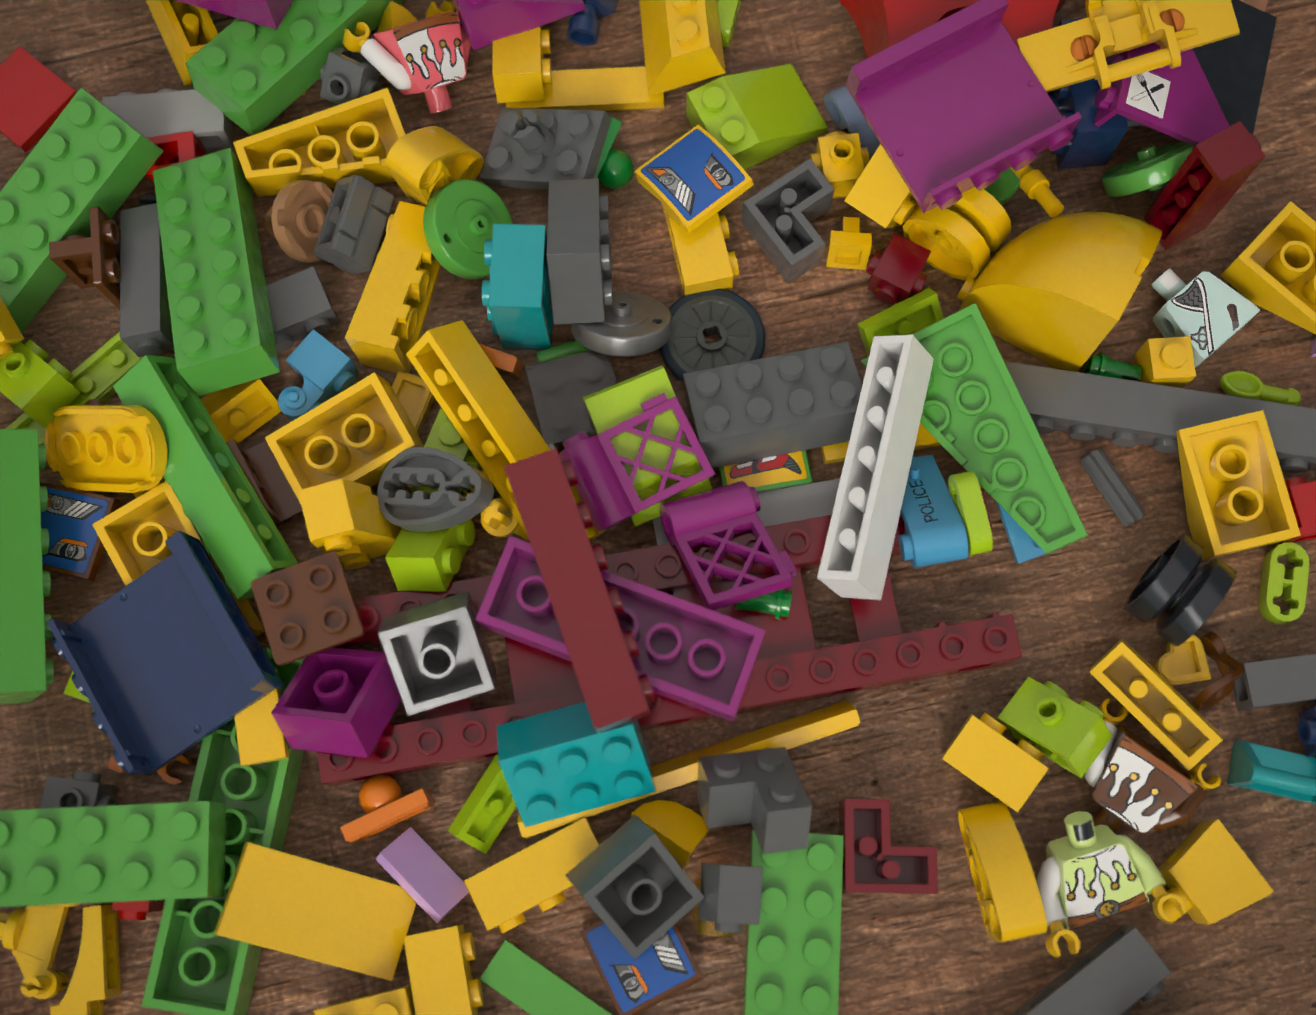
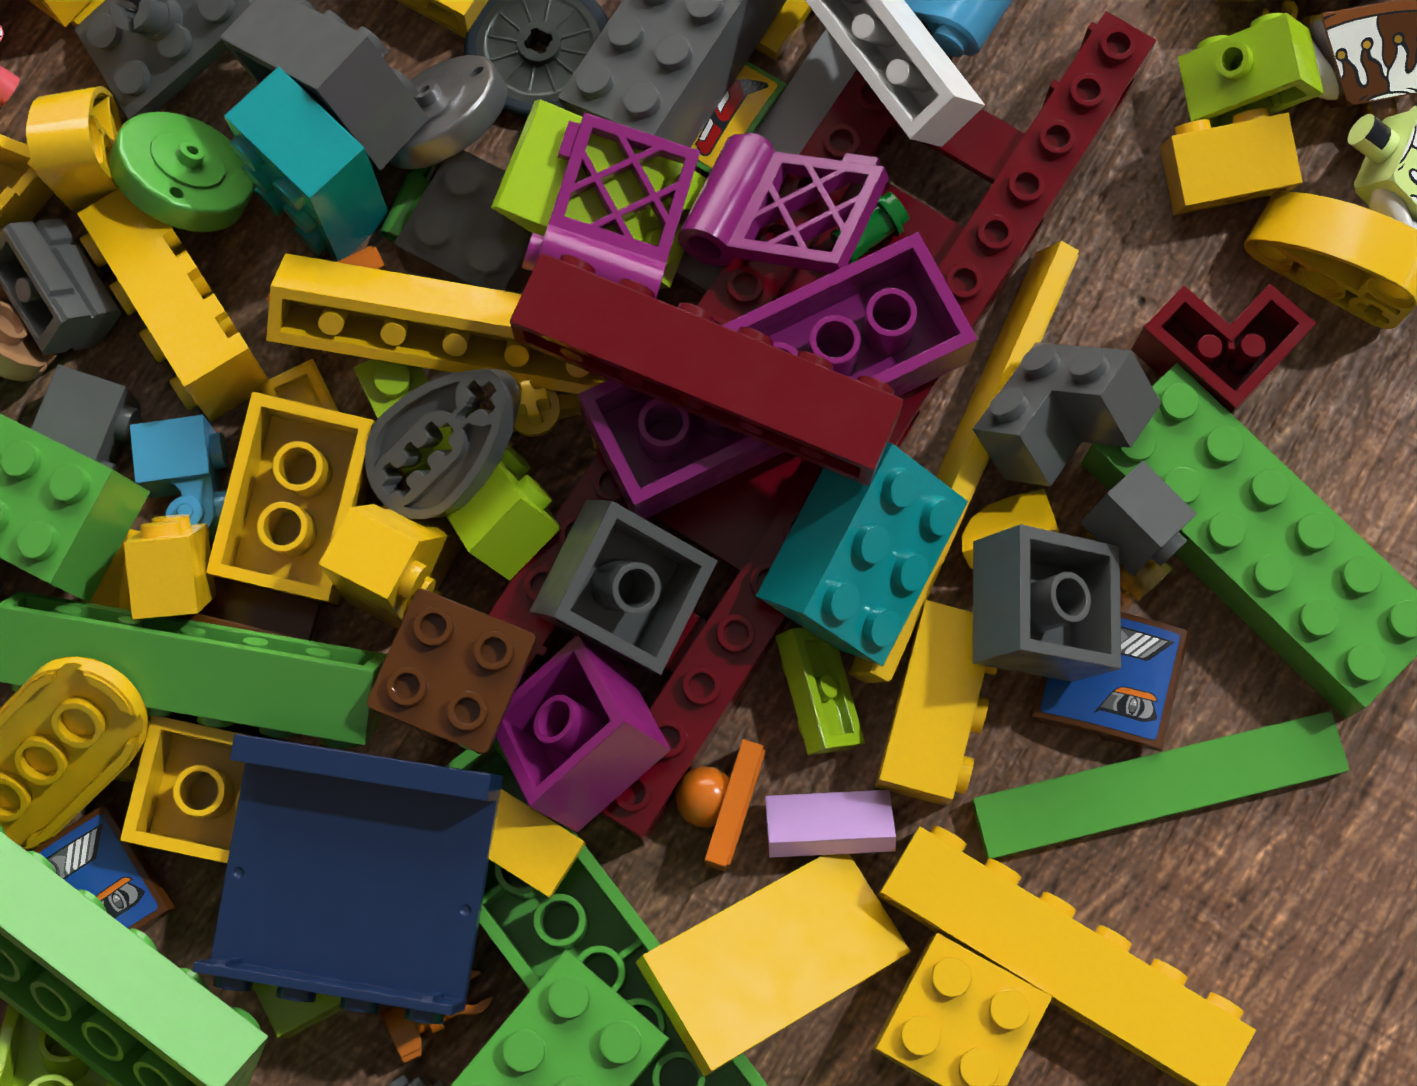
camera: 50 degrees left, 0 degrees up
(245, 417) = (169, 568): none -> yellow brick

